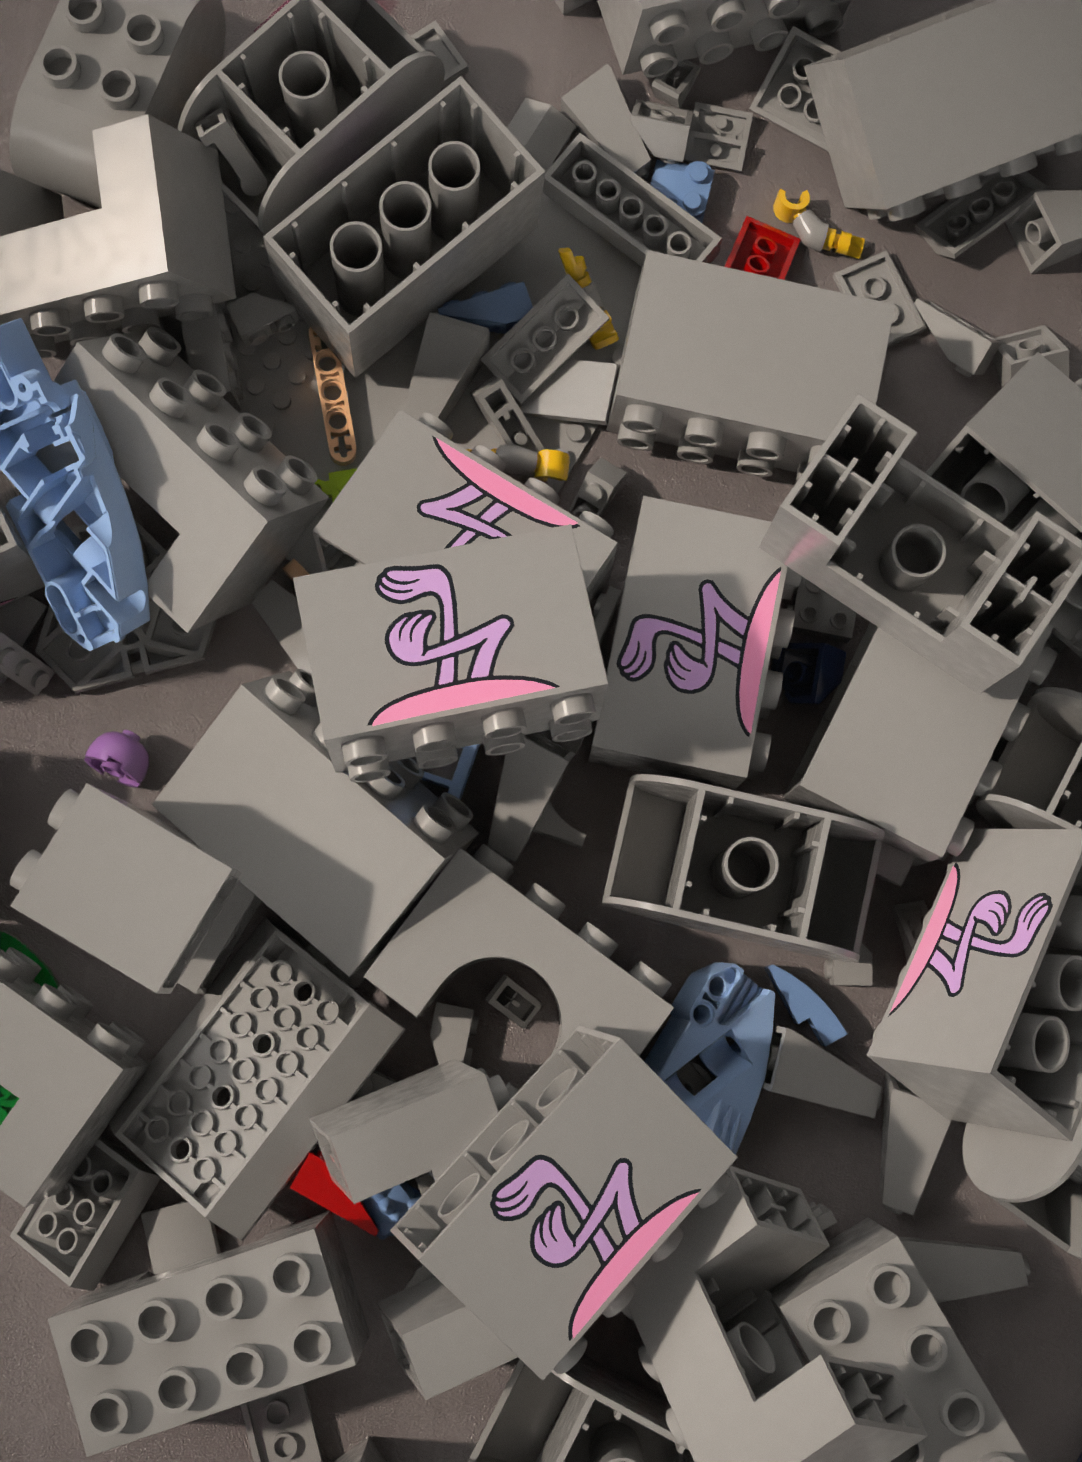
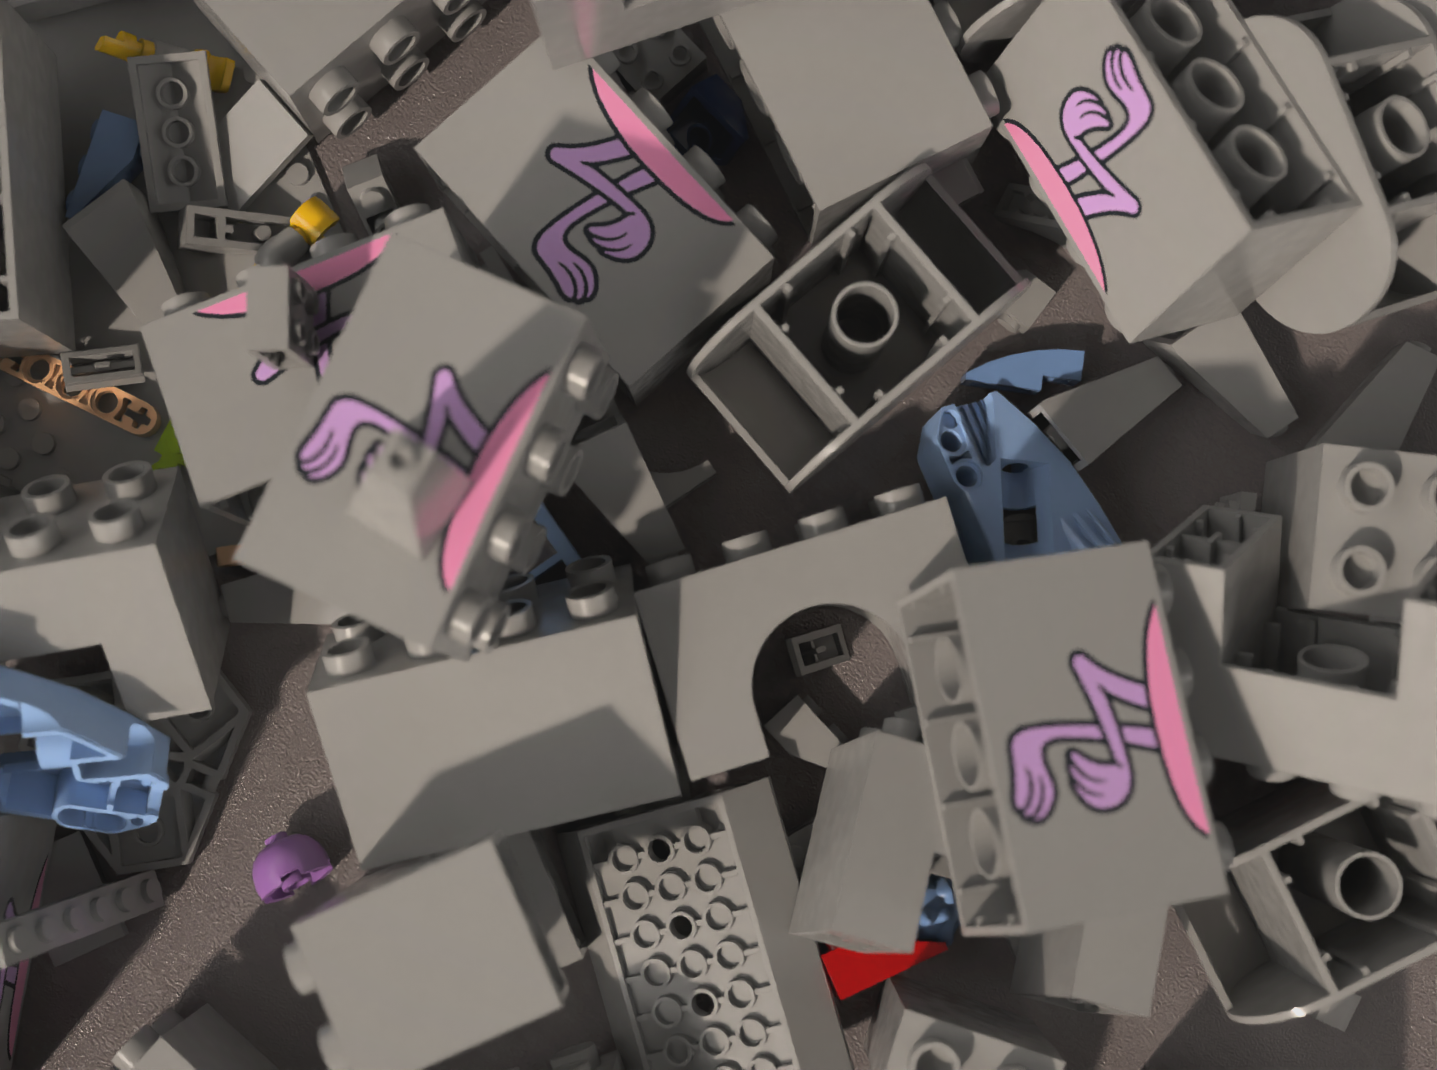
camera: 50 degrees left, 5 degrees up
(354, 405) = (102, 373): none -> light grey tile
(412, 657) = (408, 493): none -> light grey slope
(470, 493) = (280, 316): none -> light grey brick

